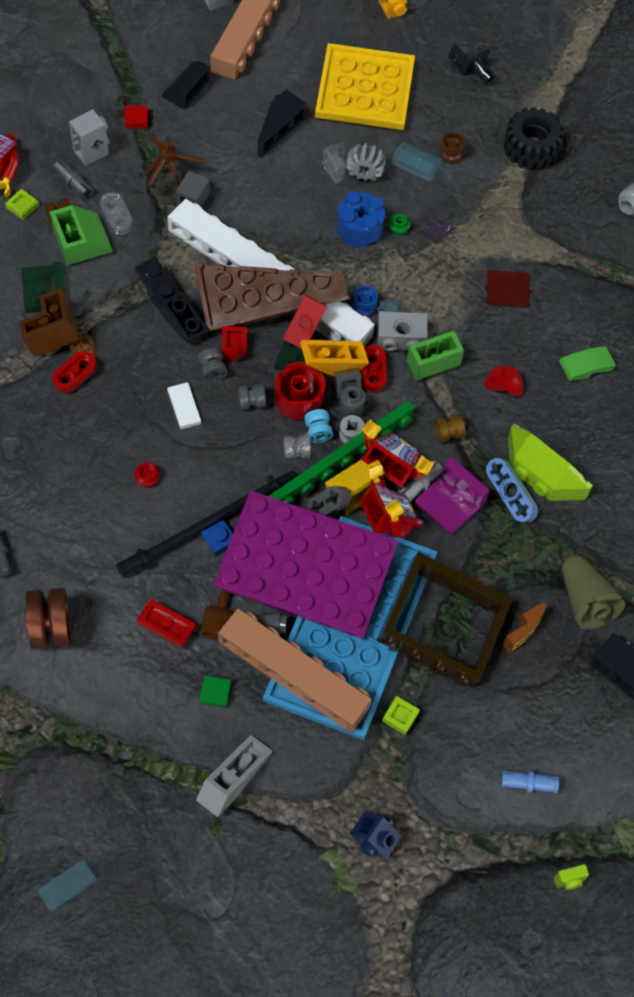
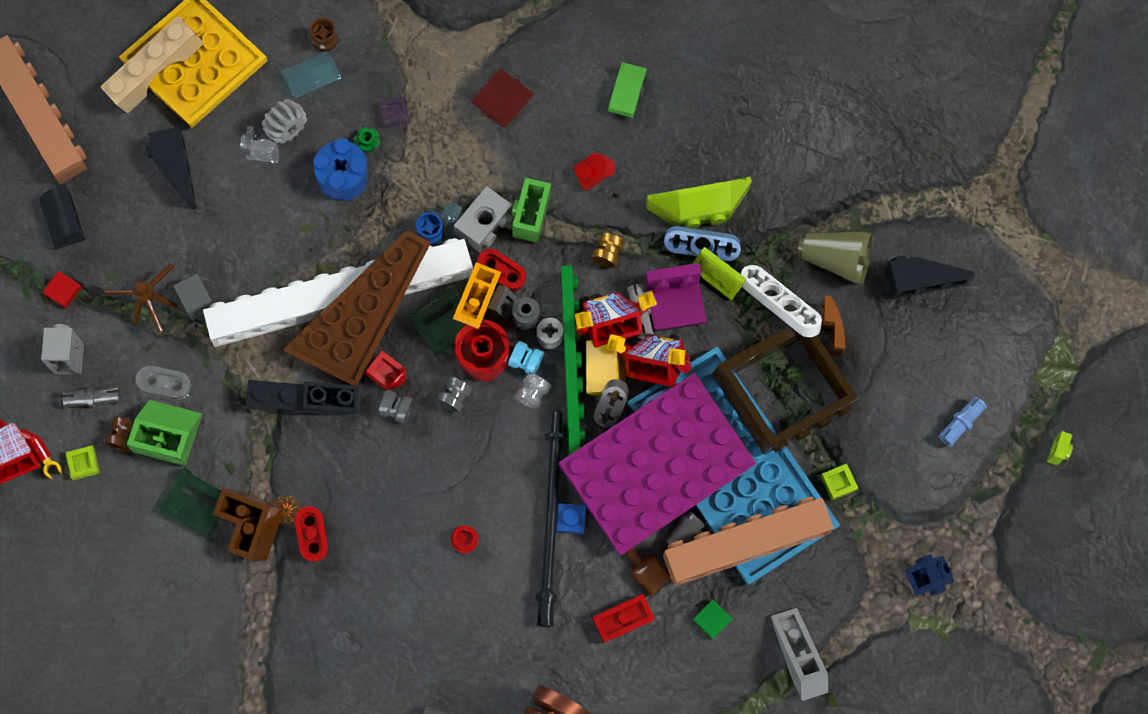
camera: 55 degrees left, 10 degrees up
(184, 405) = (416, 459): white piece -> none
(305, 321) = (422, 297): red plate -> none
(363, 61) = (132, 80): none -> tan arch
(497, 516) = (719, 274): none -> lime plate
(516, 573) = (785, 297): none -> white beam

